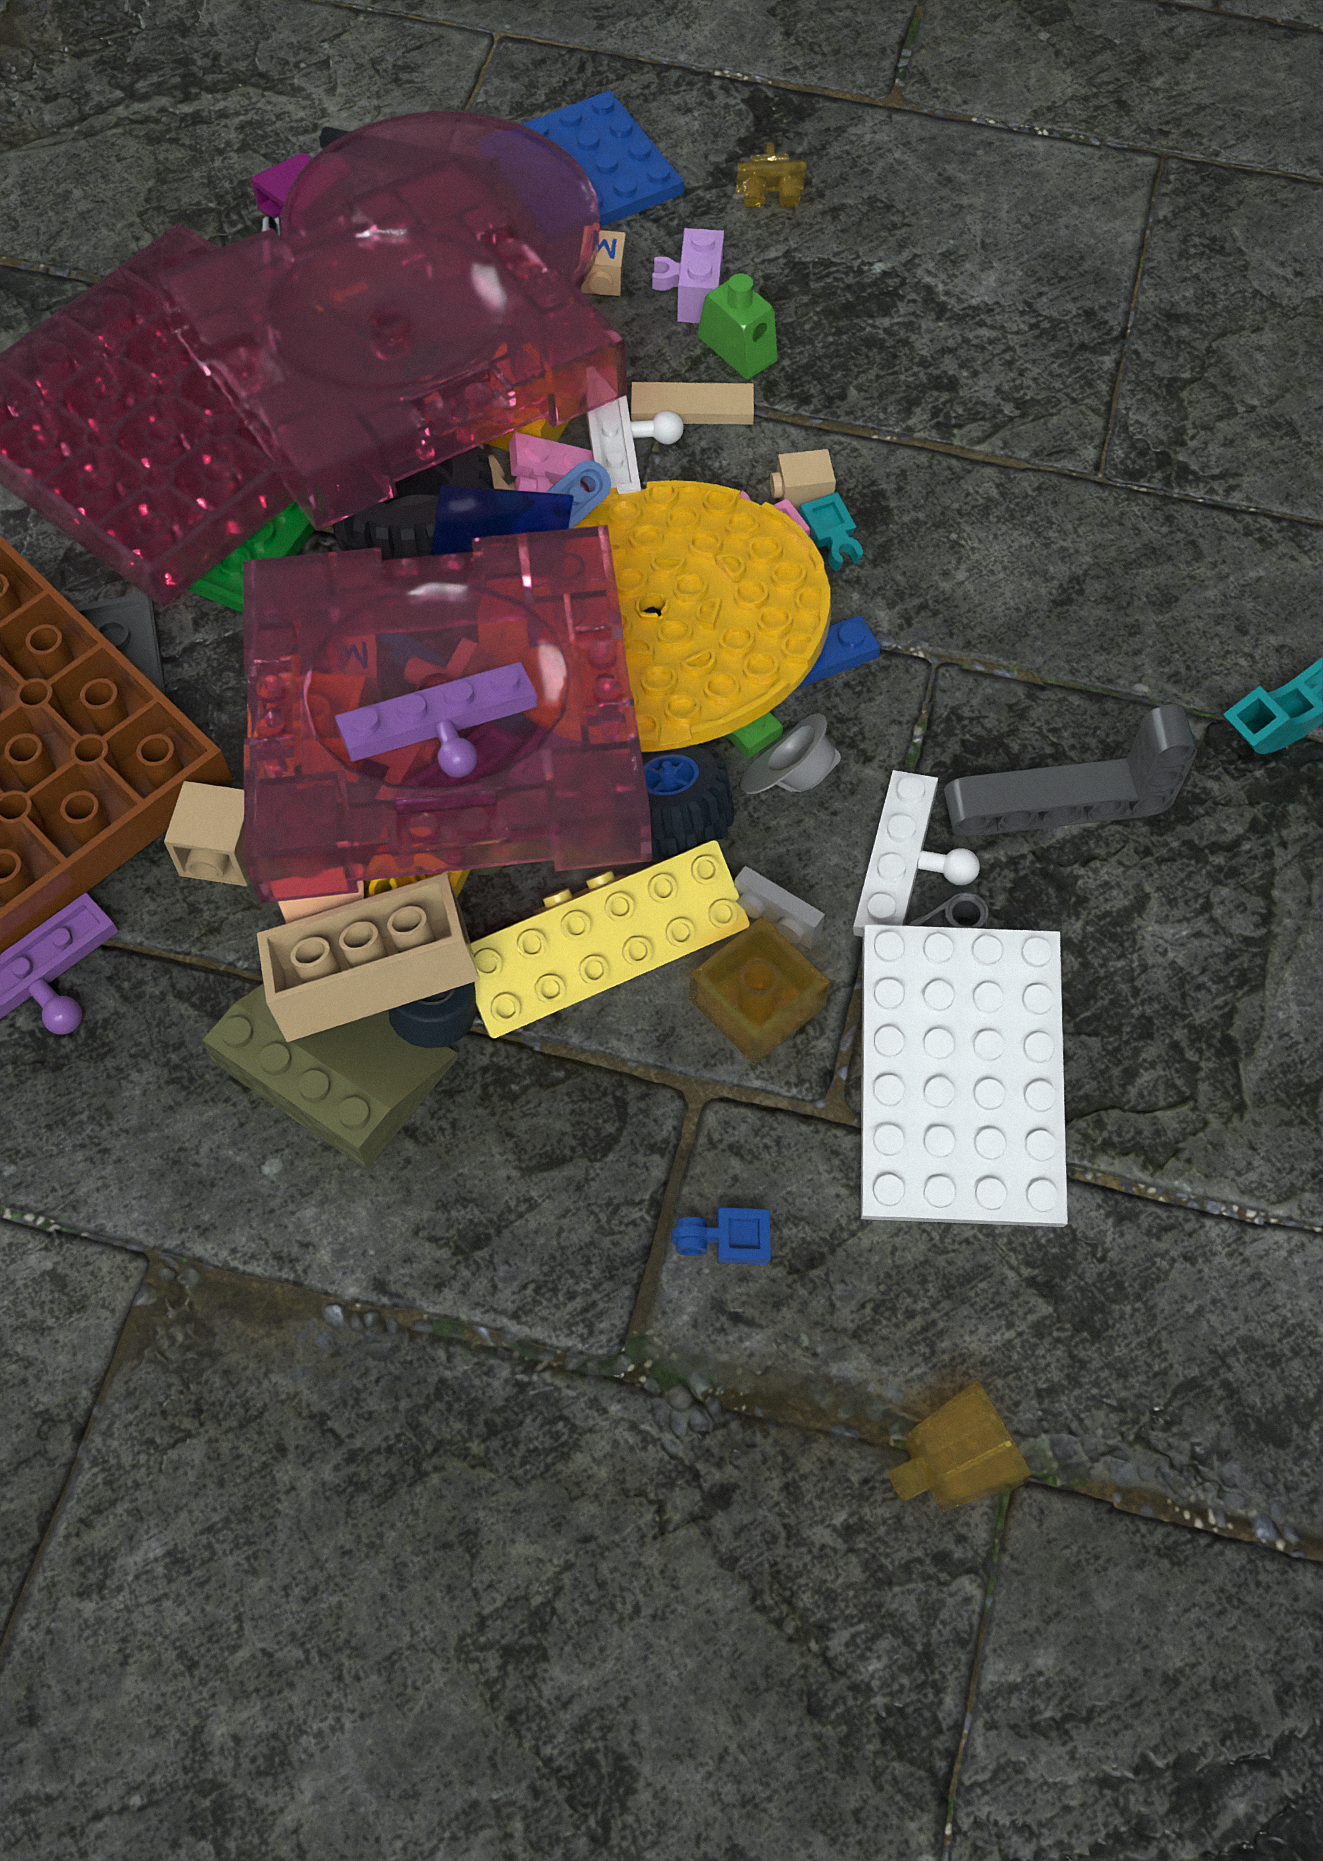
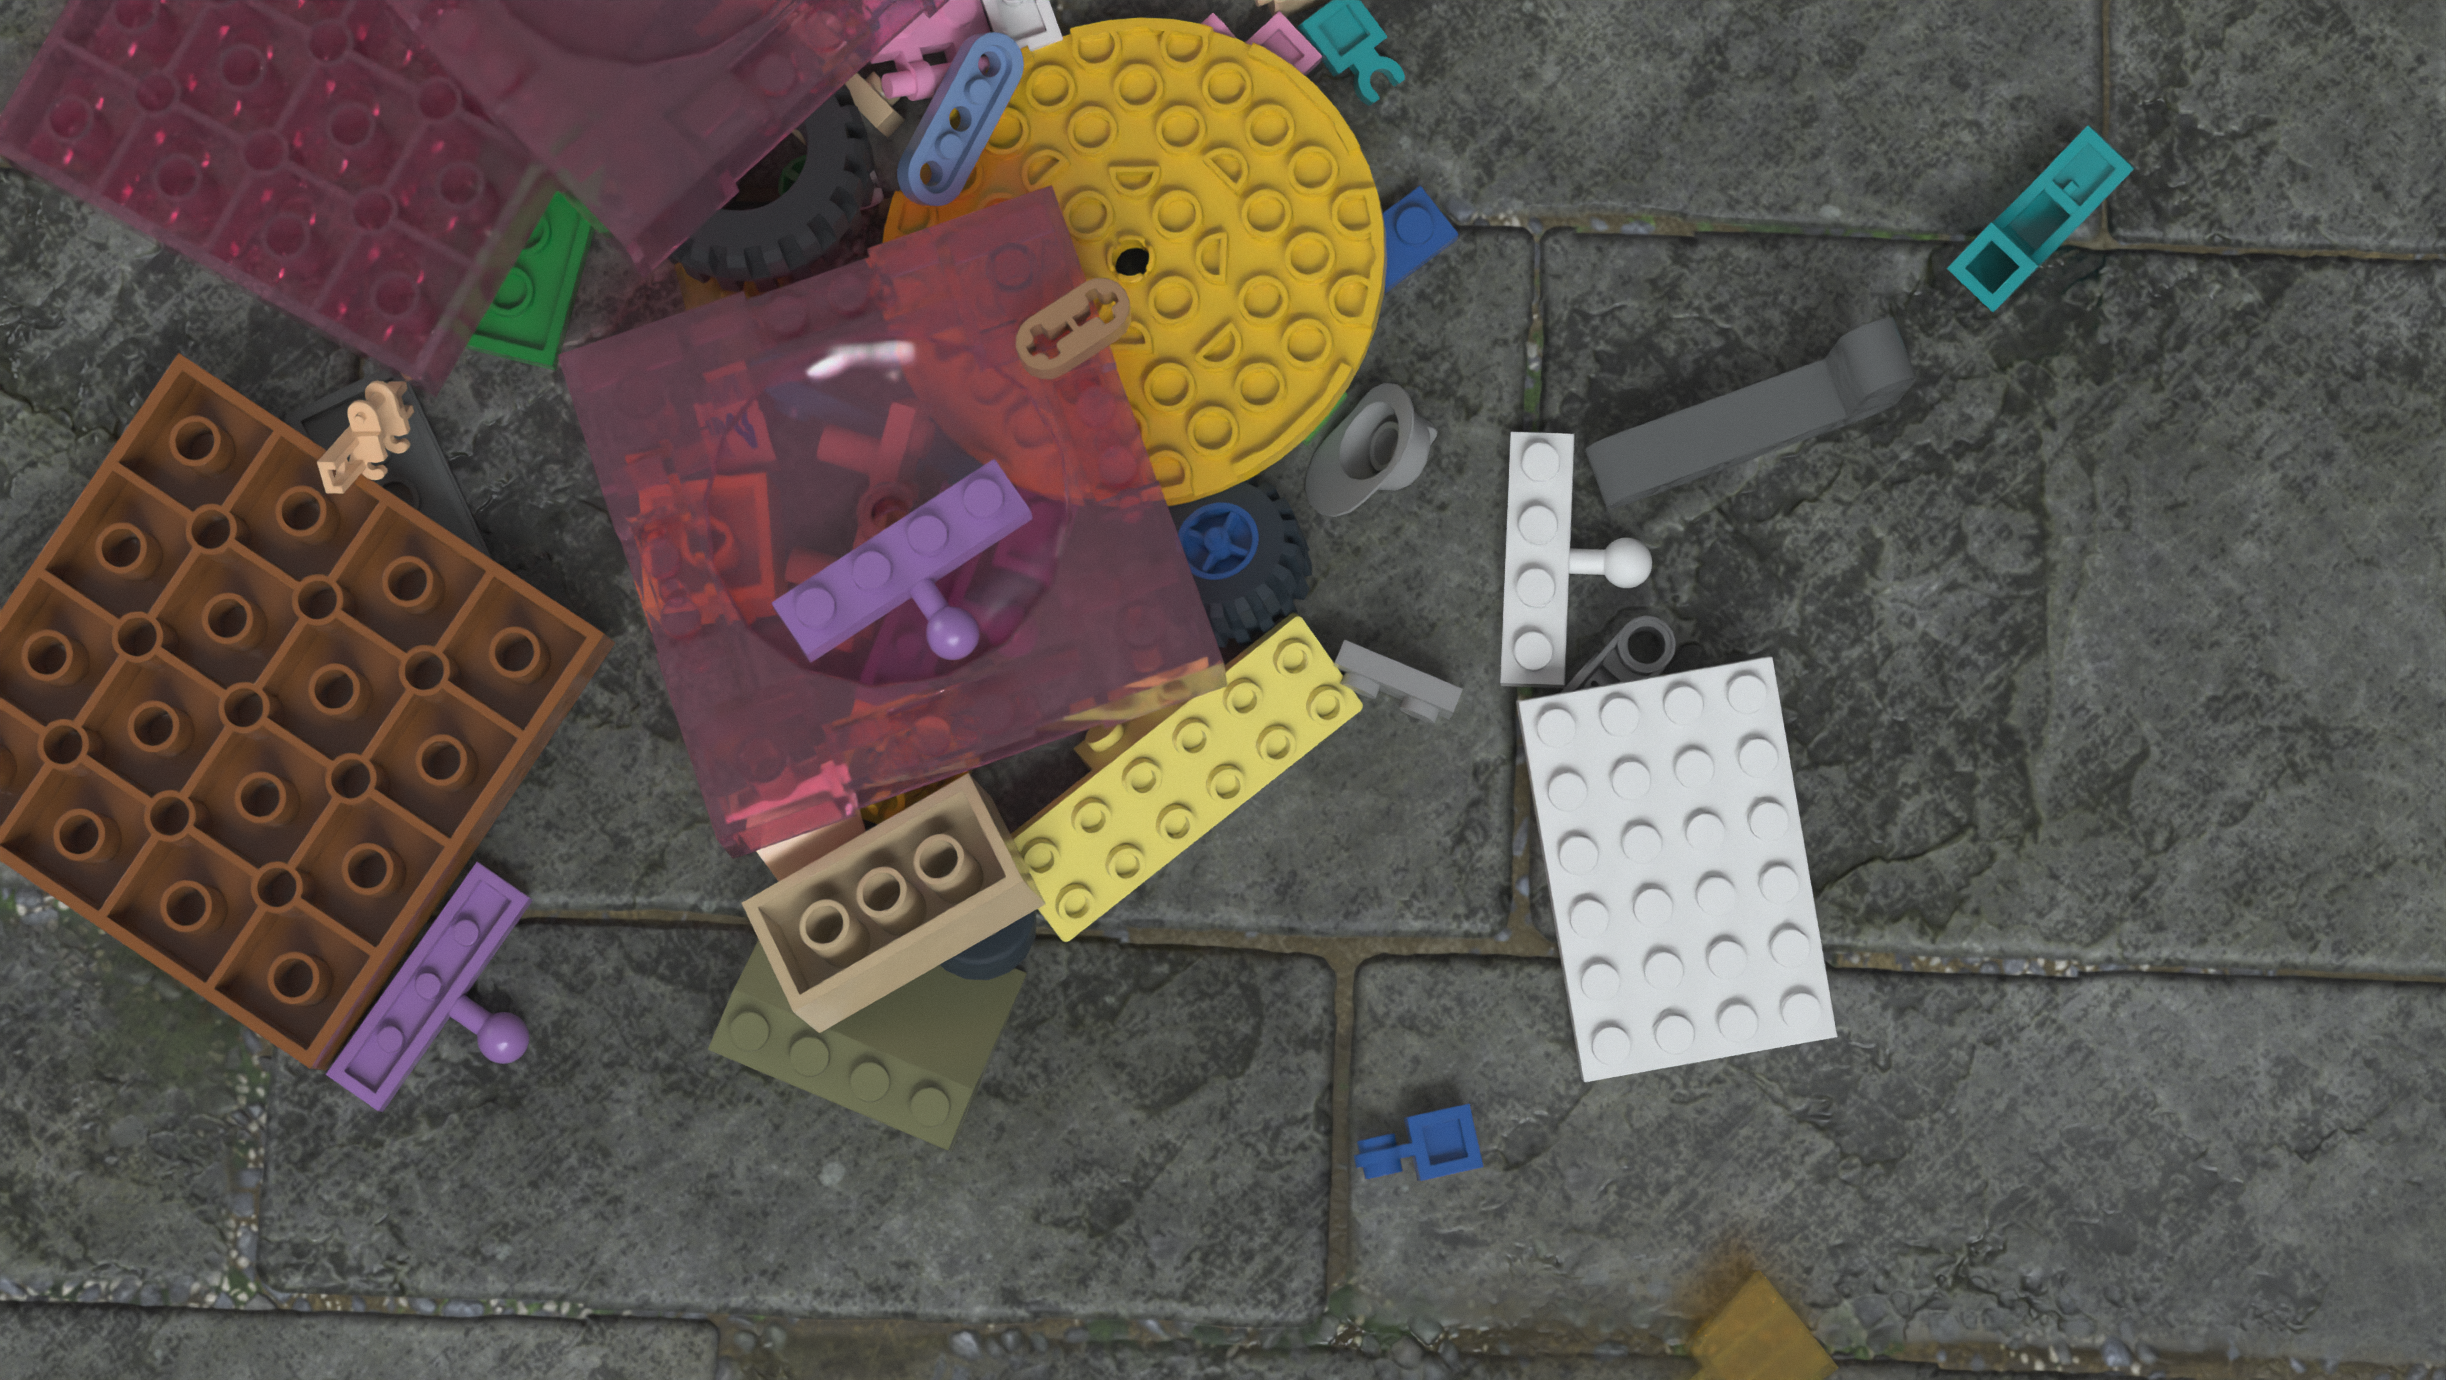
camera: 15 degrees left, 20 degrees up
(106, 592) = (368, 436): none -> light nougat piece
(208, 834) = (623, 742): tan head -> none
(489, 512) = (894, 205): clear blue piece -> none
(598, 598) = (1081, 341): none -> medium nougat beam
(758, 990) = (1396, 813): clear yellow brick -> none

